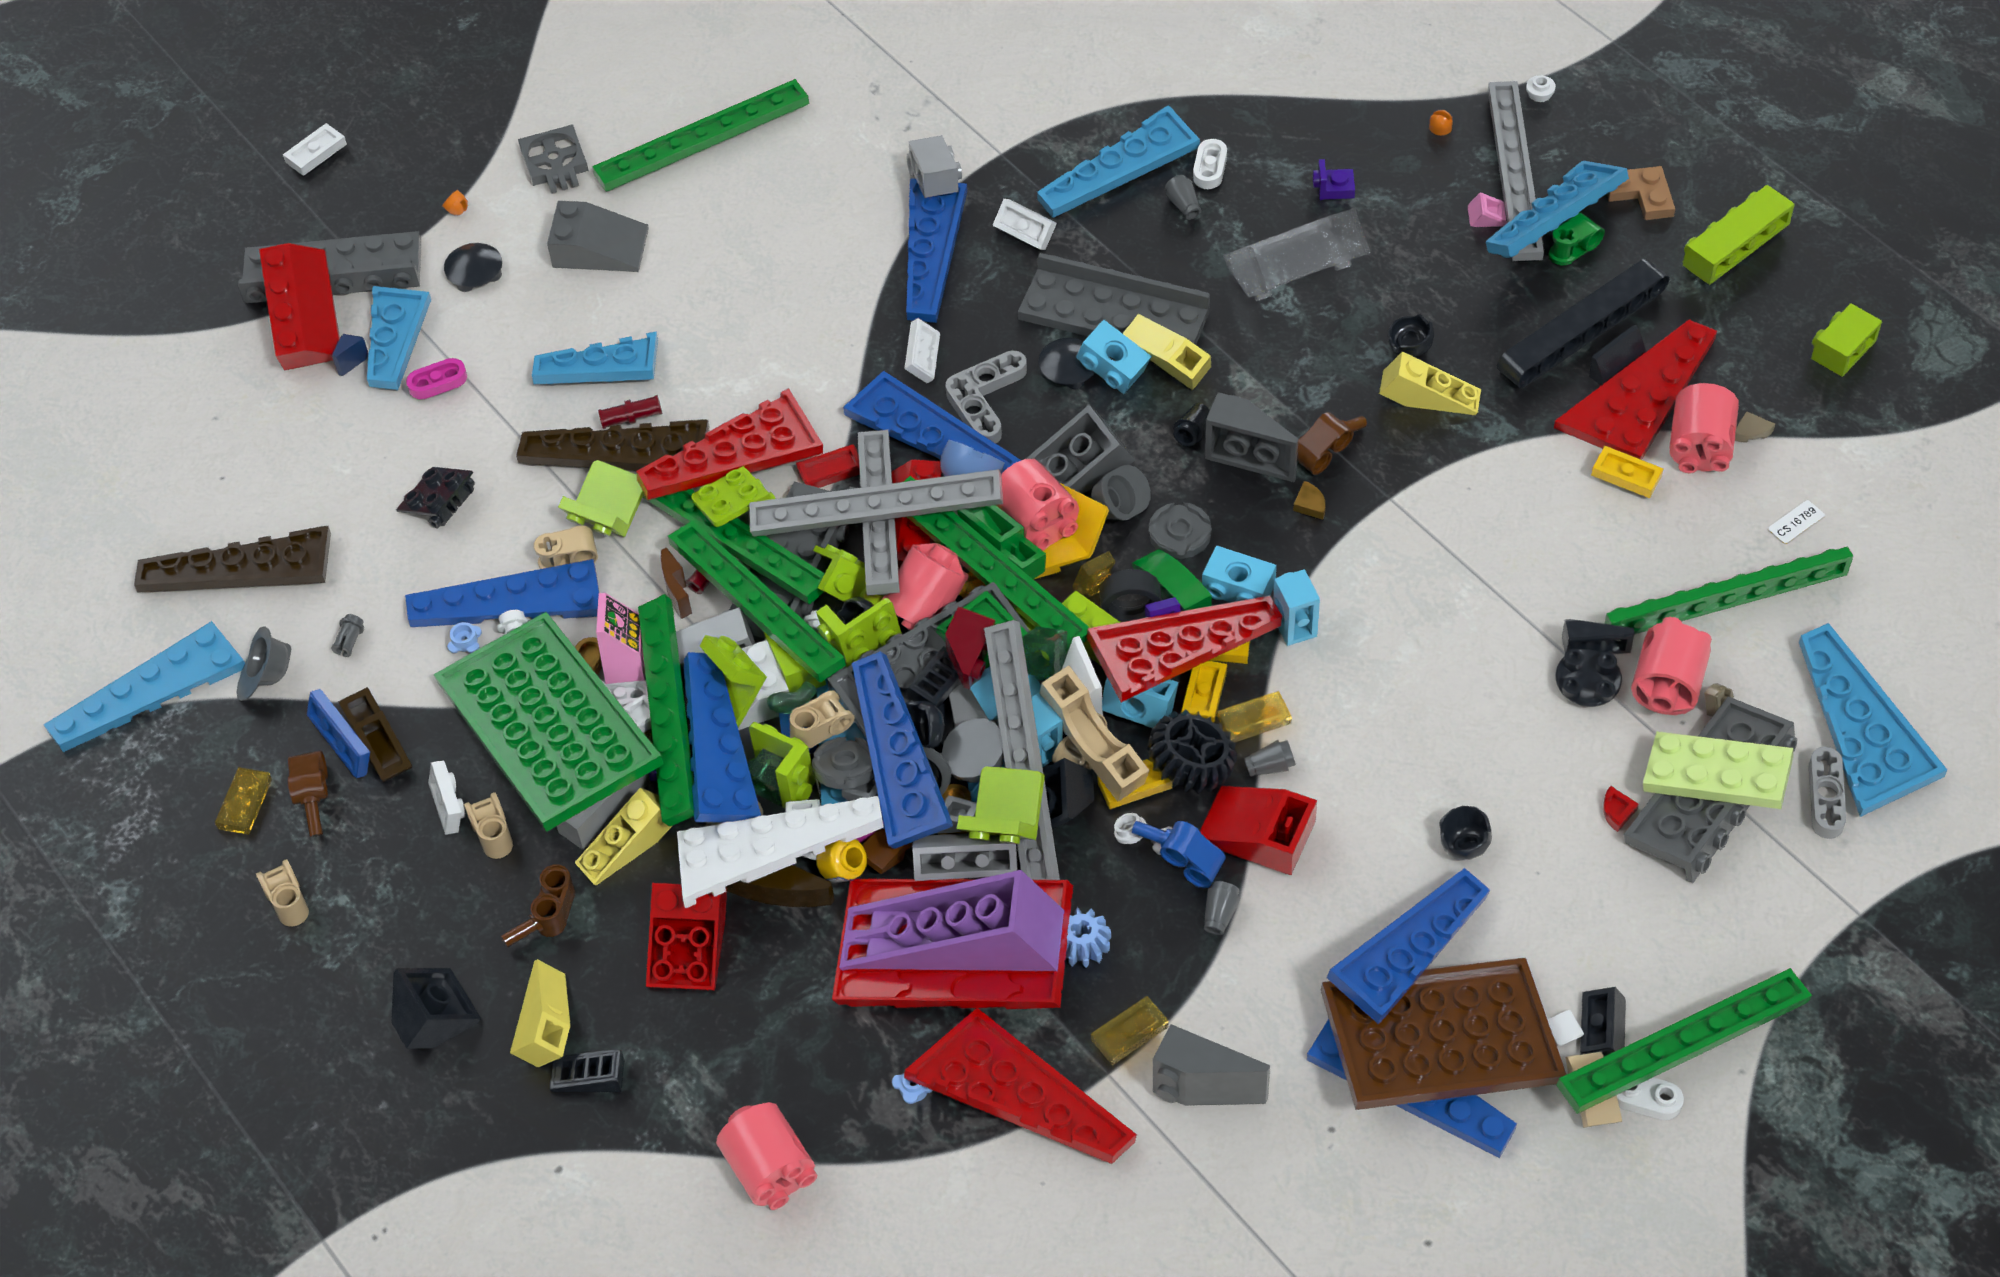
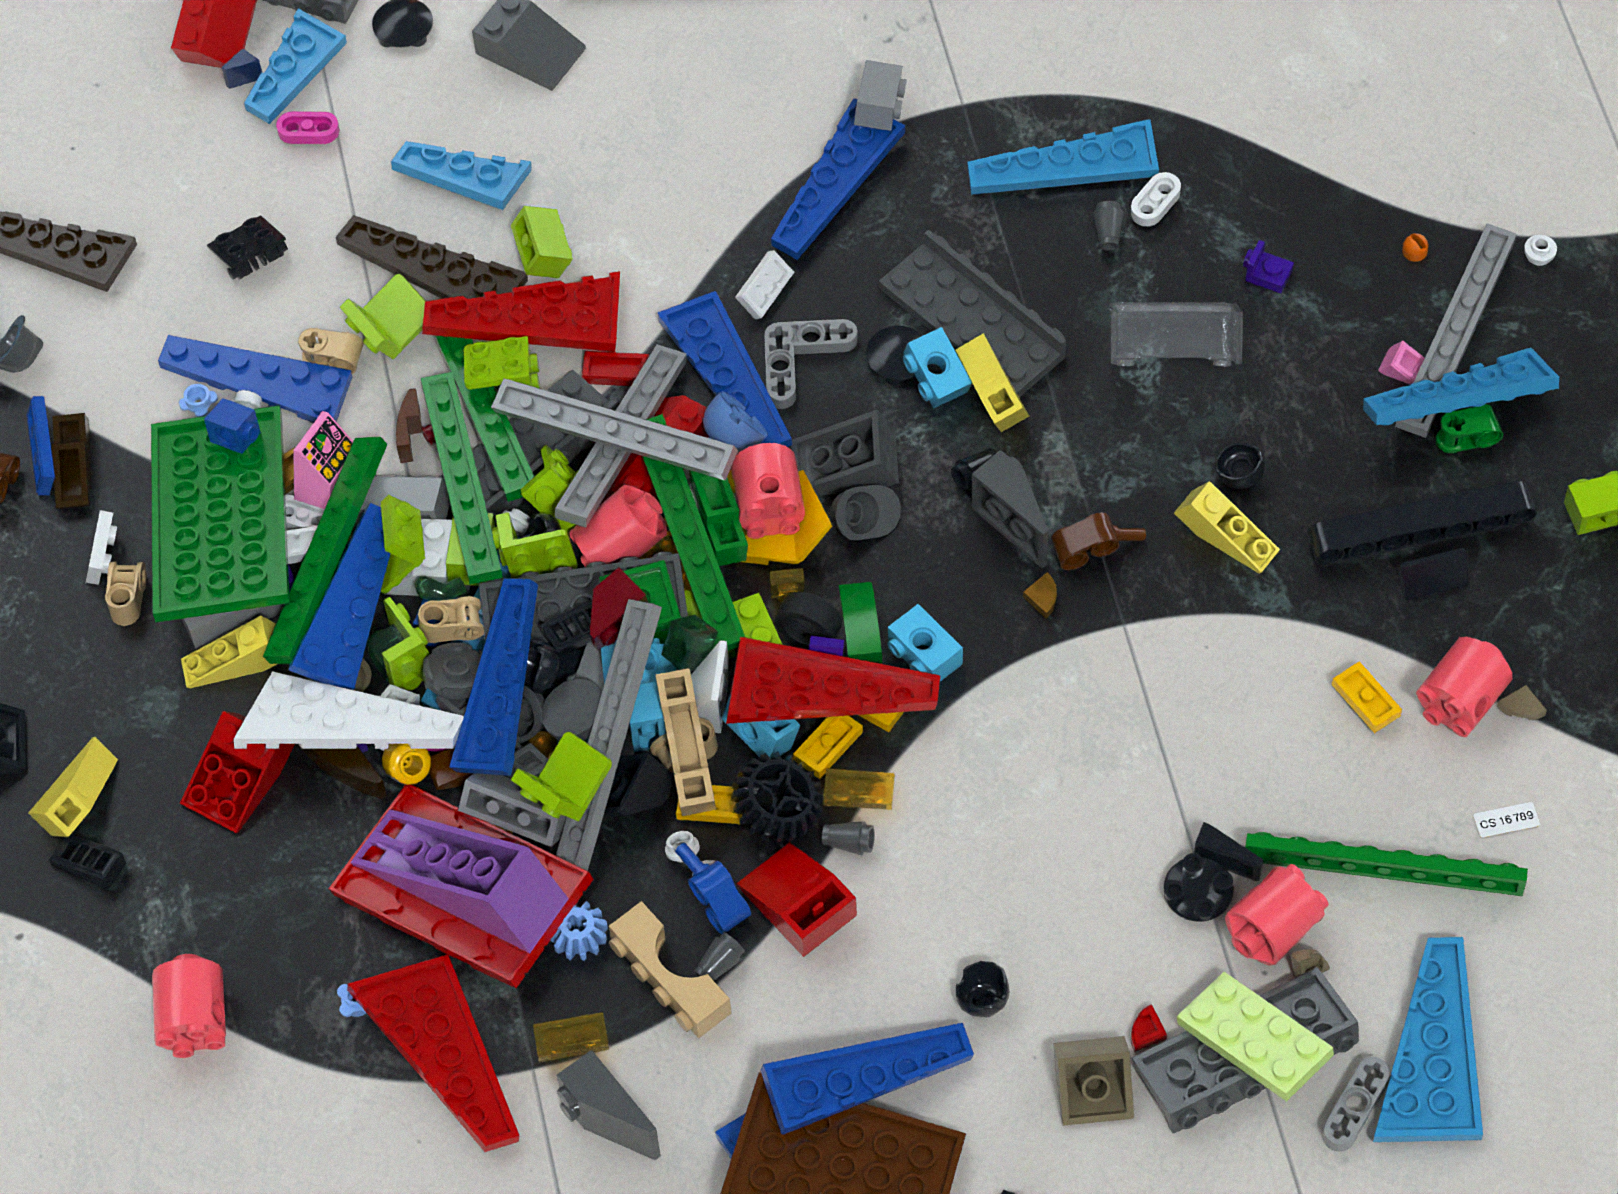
camera: 25 degrees right, 5 degrees up
(350, 629) = (99, 352): dark grey pin -> none
(517, 641) = (232, 425): none -> blue brick
(550, 900) = (143, 688): reddish brown beam -> none
(630, 411) = (463, 235): dark red pin -> none
(707, 389) = (541, 241): none -> lime brick
(1024, 224) = (936, 191): white plate -> none
(1180, 530) = (902, 571): dark grey tile -> none
(1221, 951) = (695, 1000): none -> tan arch
(1298, 605) = (955, 698): medium azure brick -> none
(1604, 866) = (1094, 1080): none -> dark tan slope
(1638, 399) = (1416, 630): red wing -> none
(1650, 189) = (1583, 405): medium nougat plate -> none

